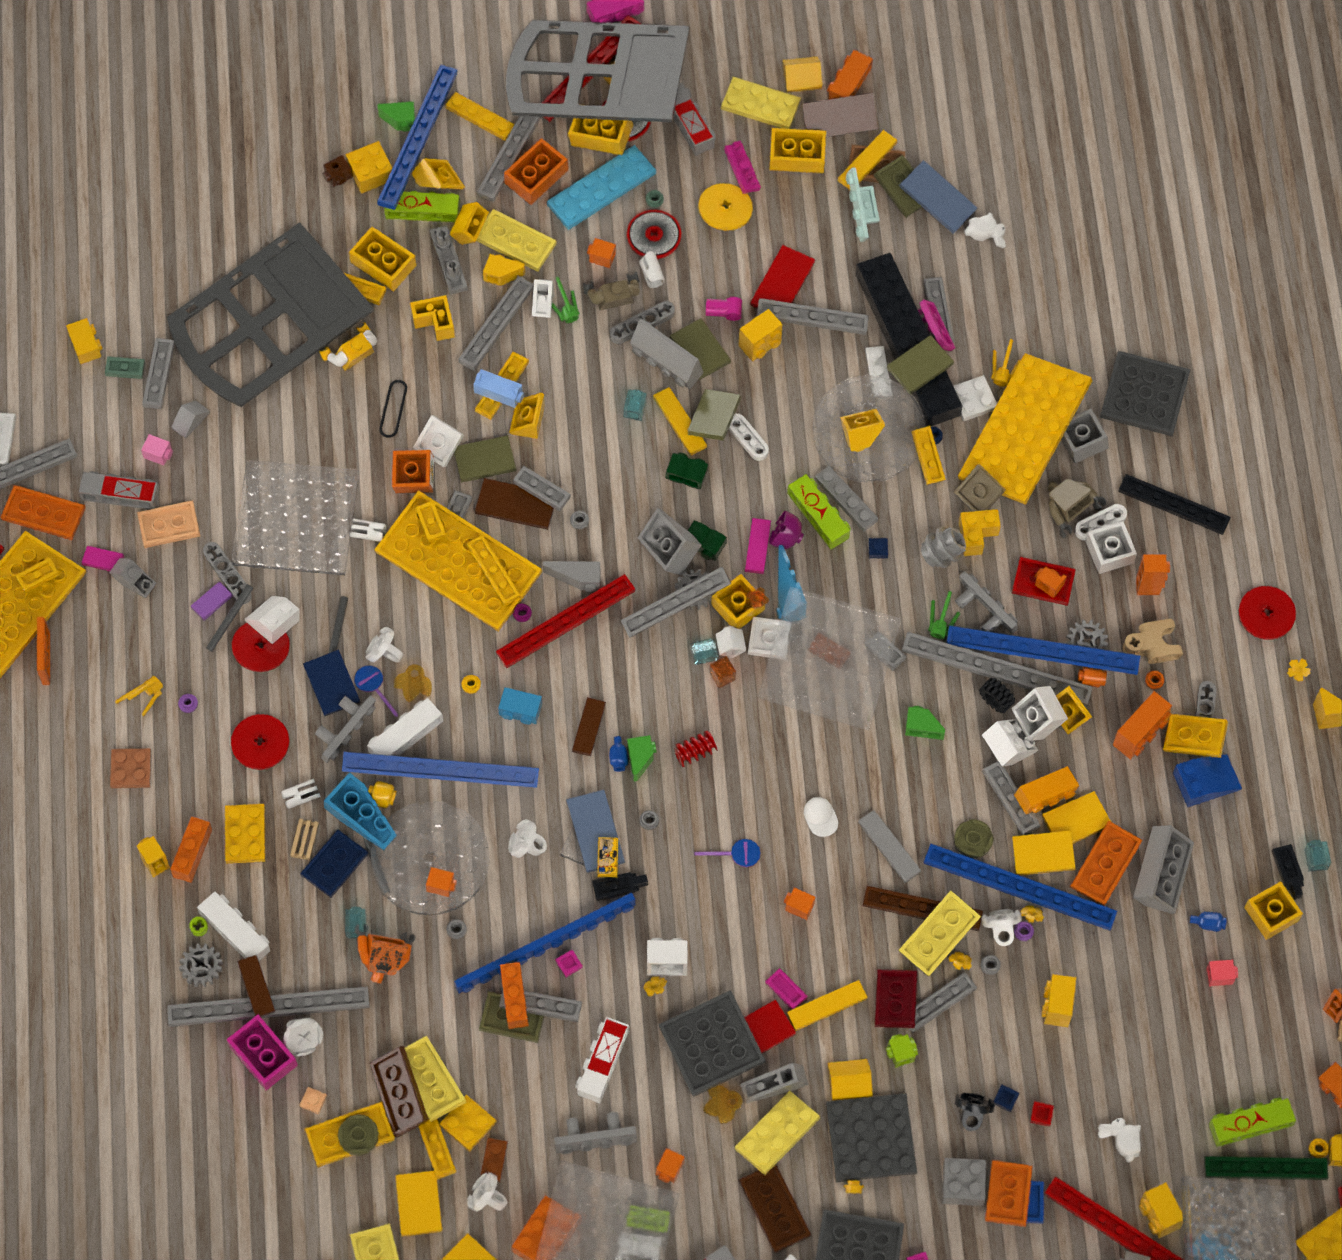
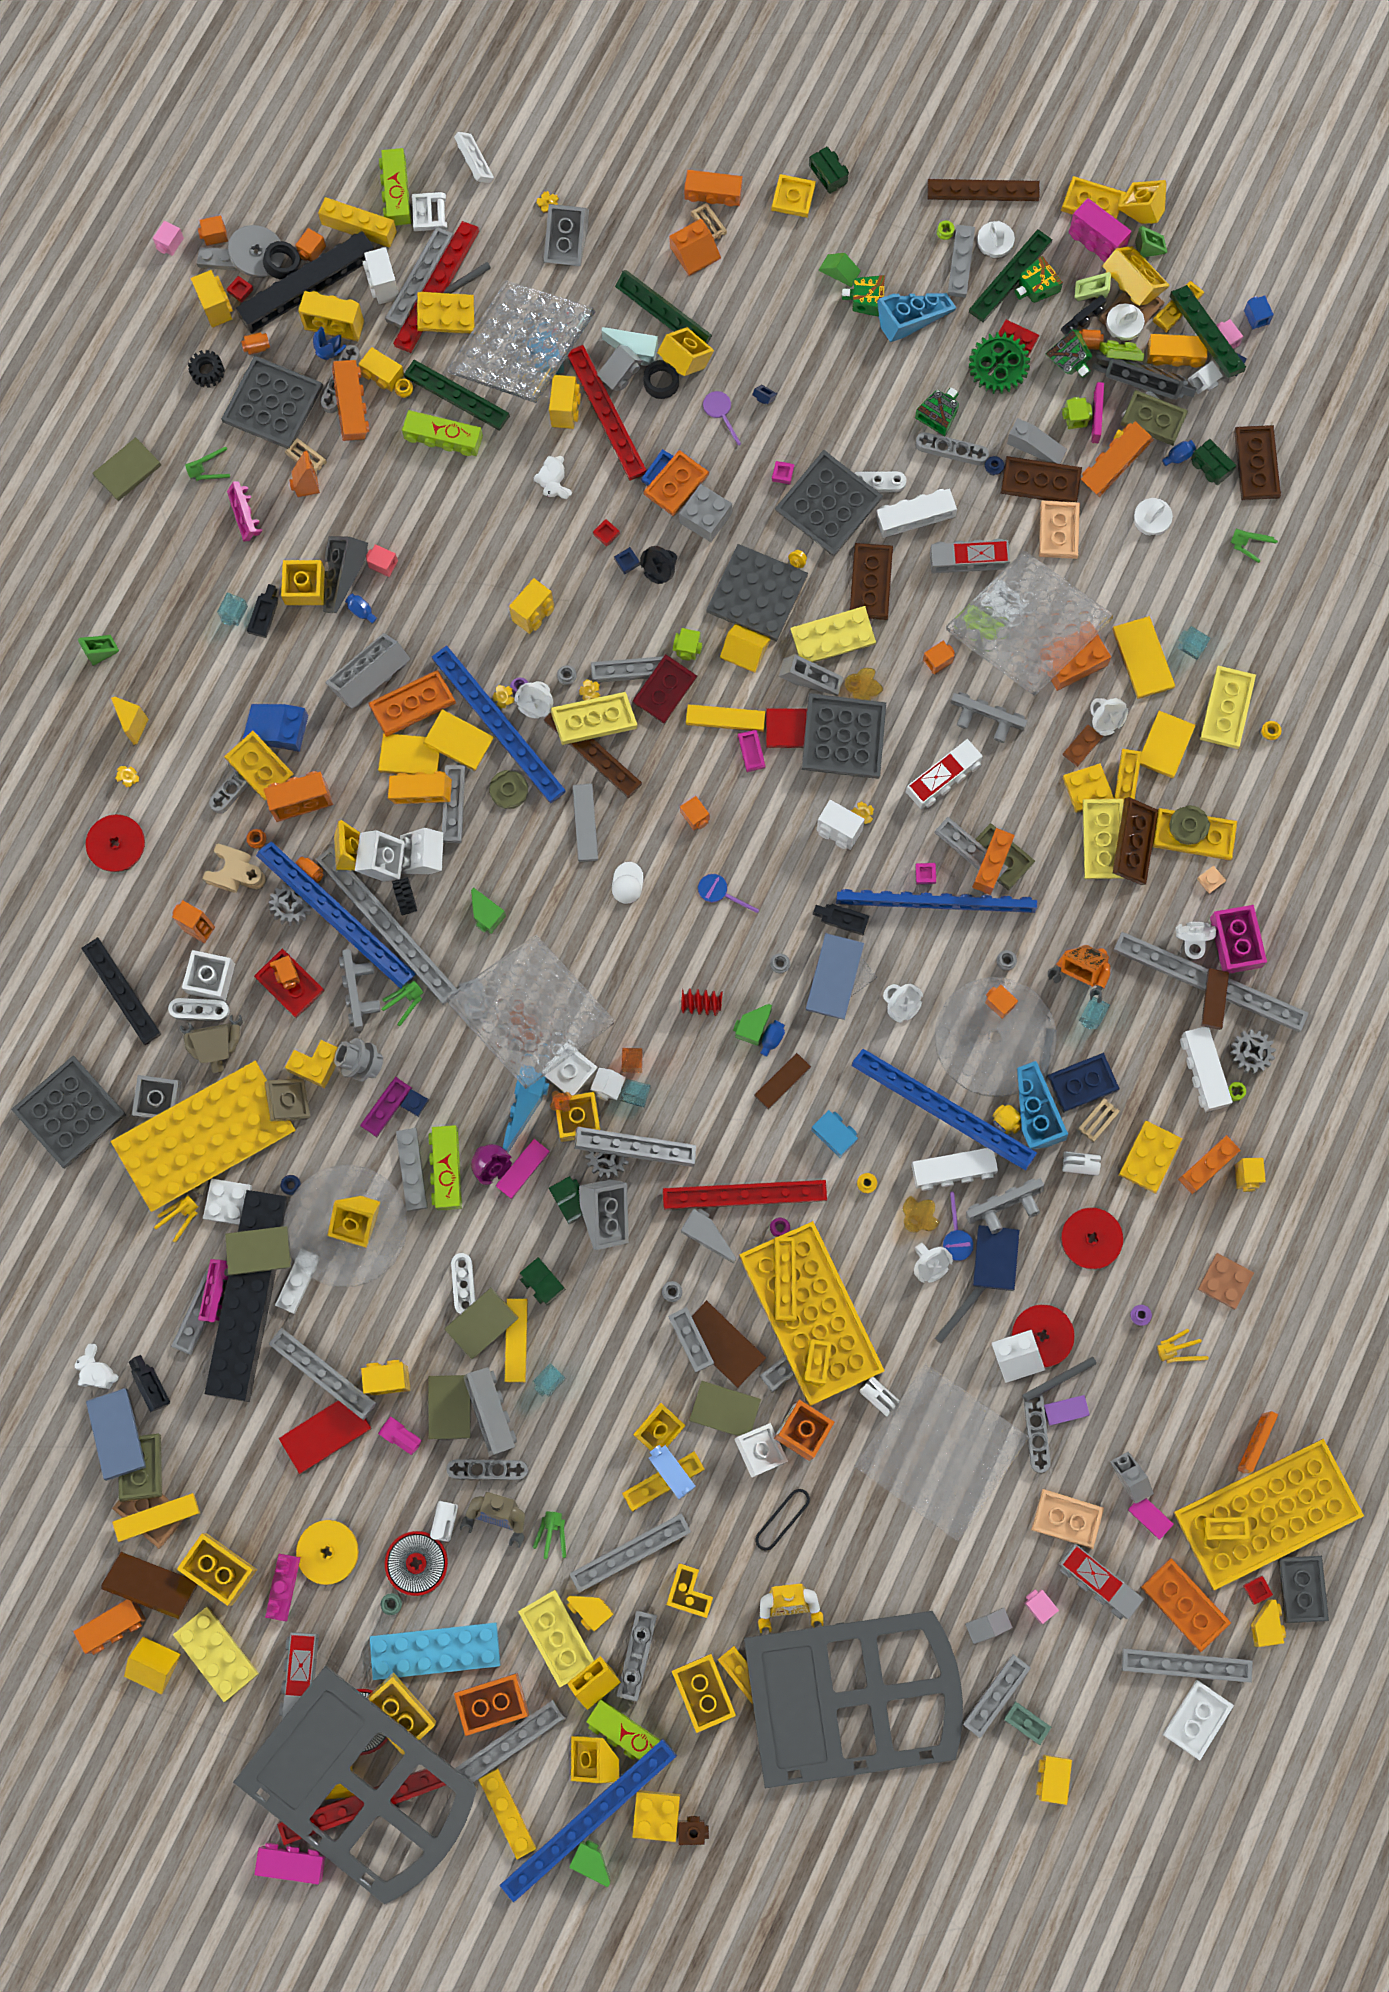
camera: 145 degrees left, 10 degrees up
(542, 298) = (571, 1549): white slope -> none
(601, 252) = (481, 1570): orange brick -> none
(607, 857) = (839, 942): tile -> none
(864, 204) = (193, 1466): light aqua bracket -> none
(899, 533) = (385, 1107): none -> magenta tile
(928, 455) = (309, 1163): yellow tile -> none
(938, 242) = (148, 1384): none -> black hinge
(1249, 950) = (344, 559): none -> dark grey wedge

